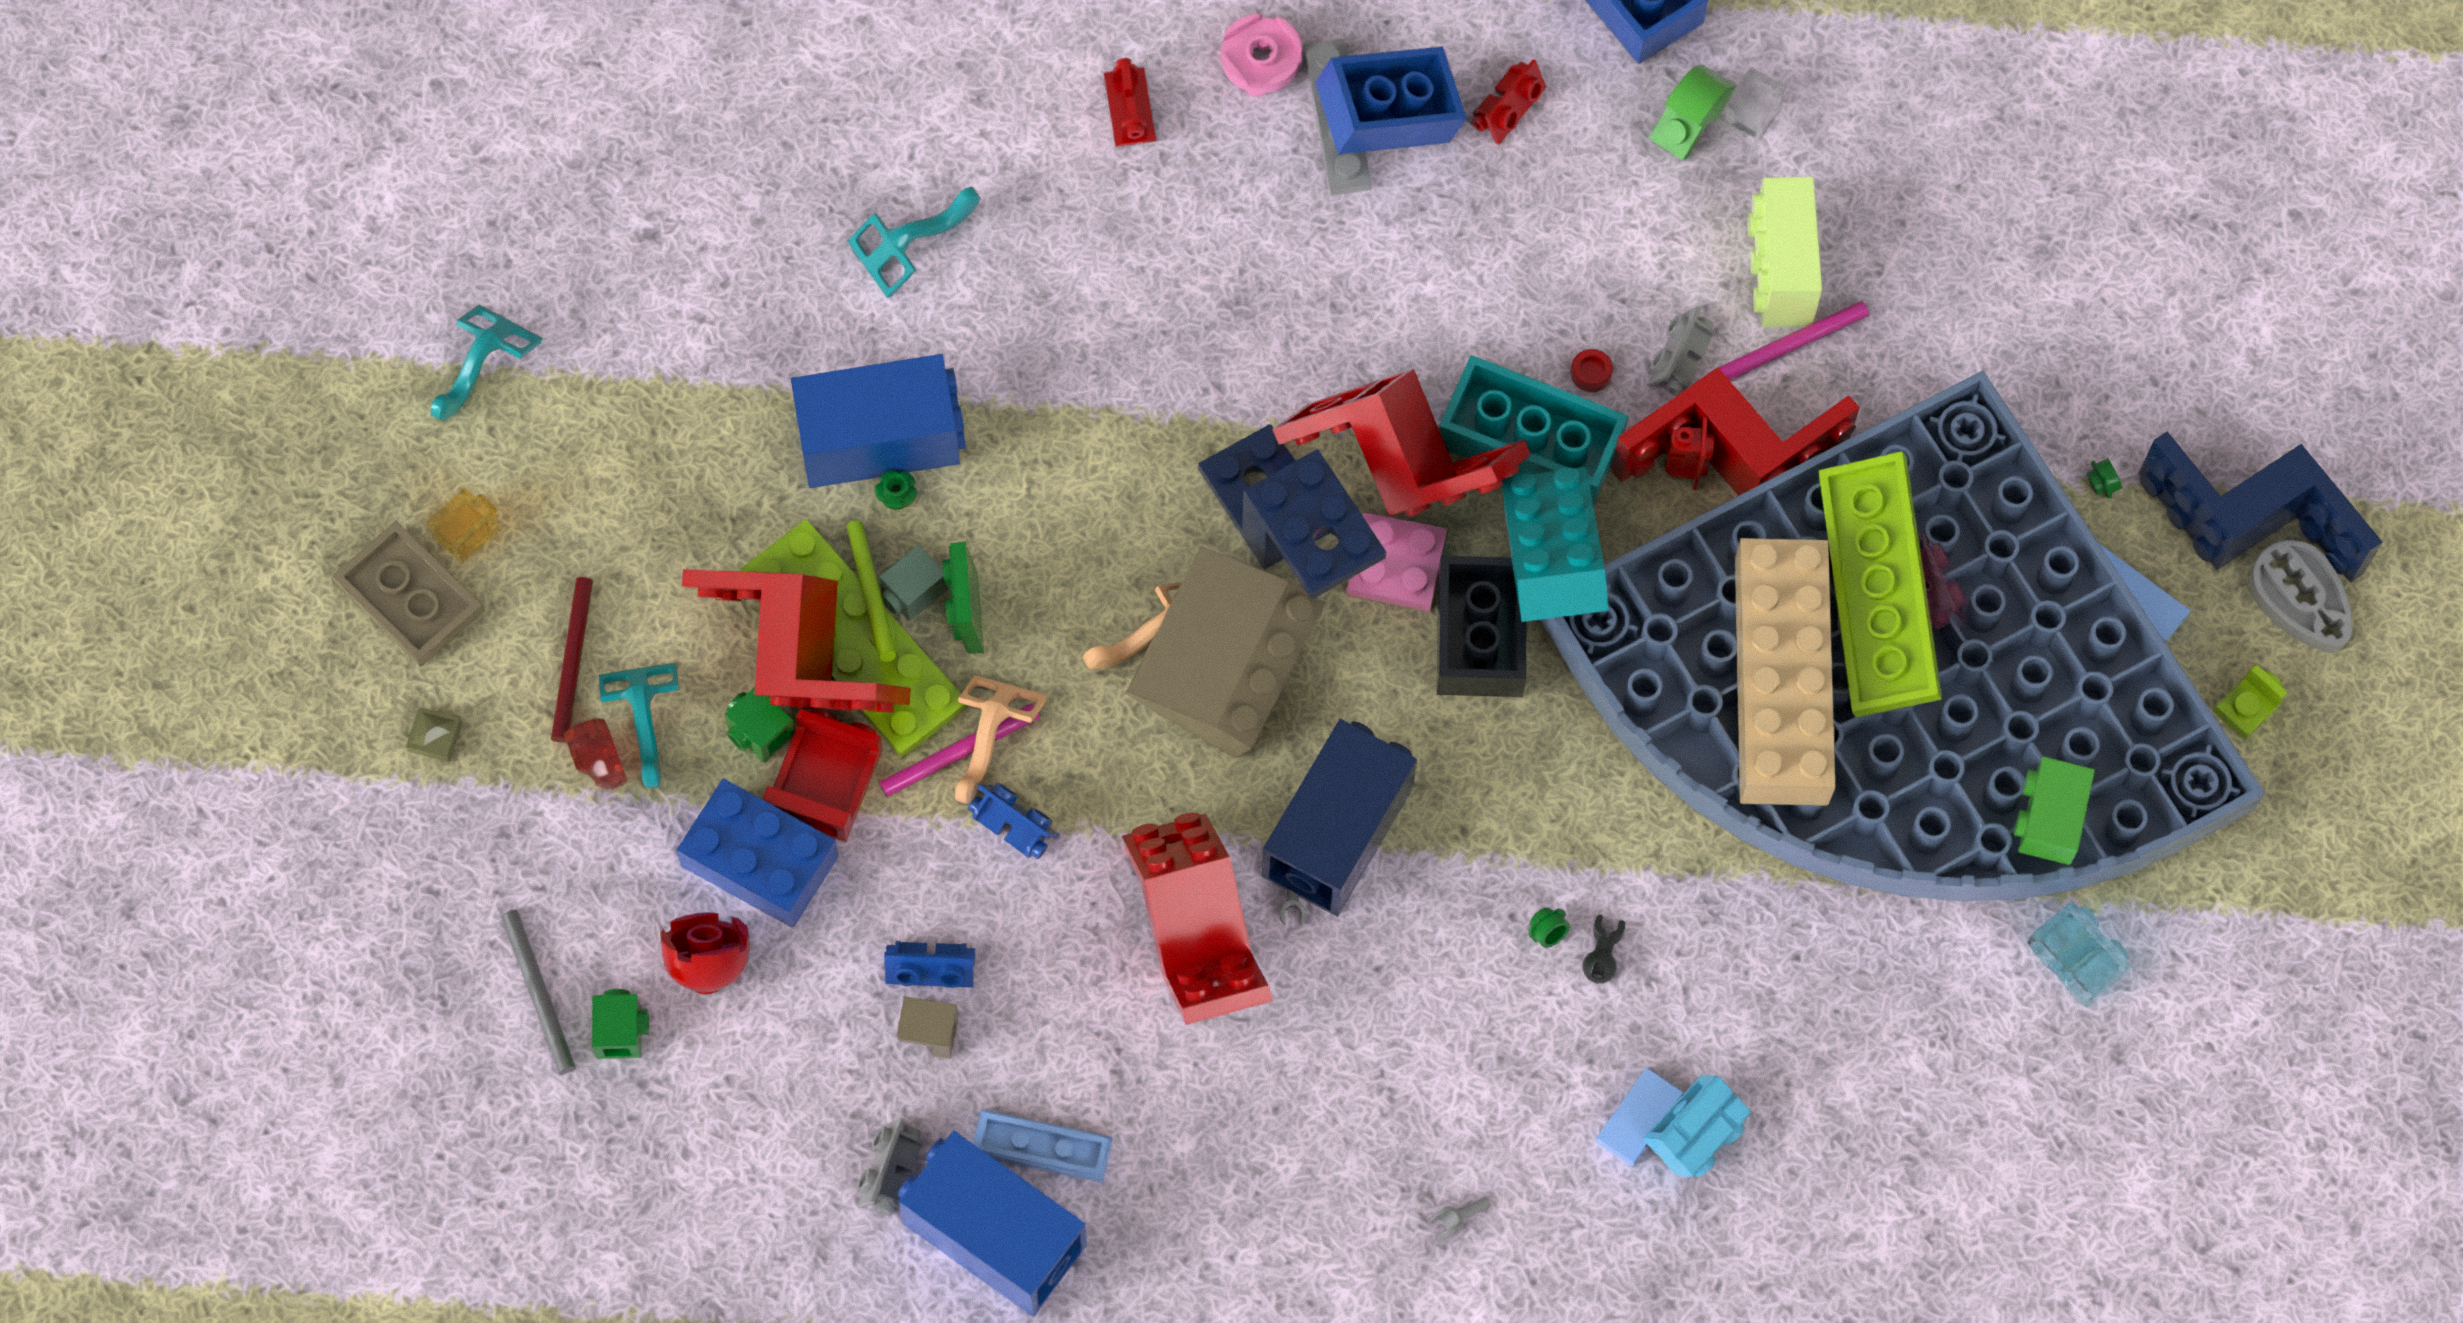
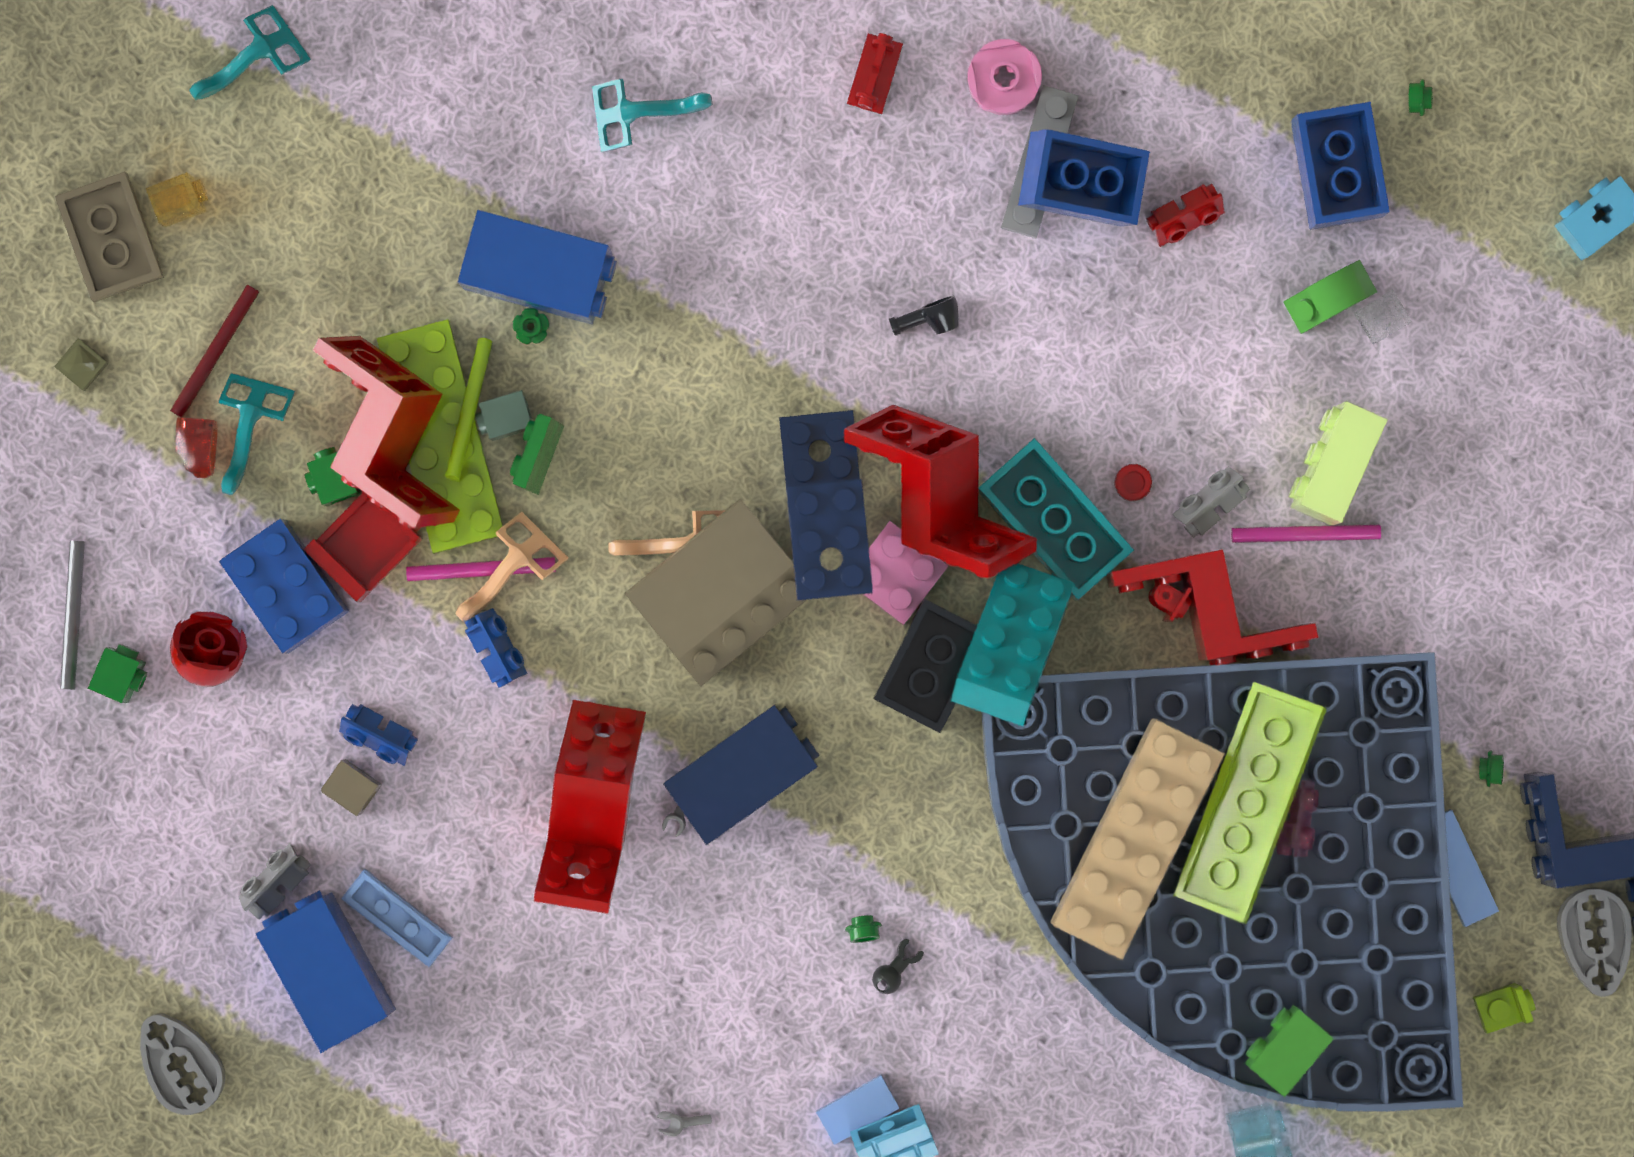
camera: 20 degrees right, 20 degrees up
(1312, 296) = (939, 315): none -> black bar

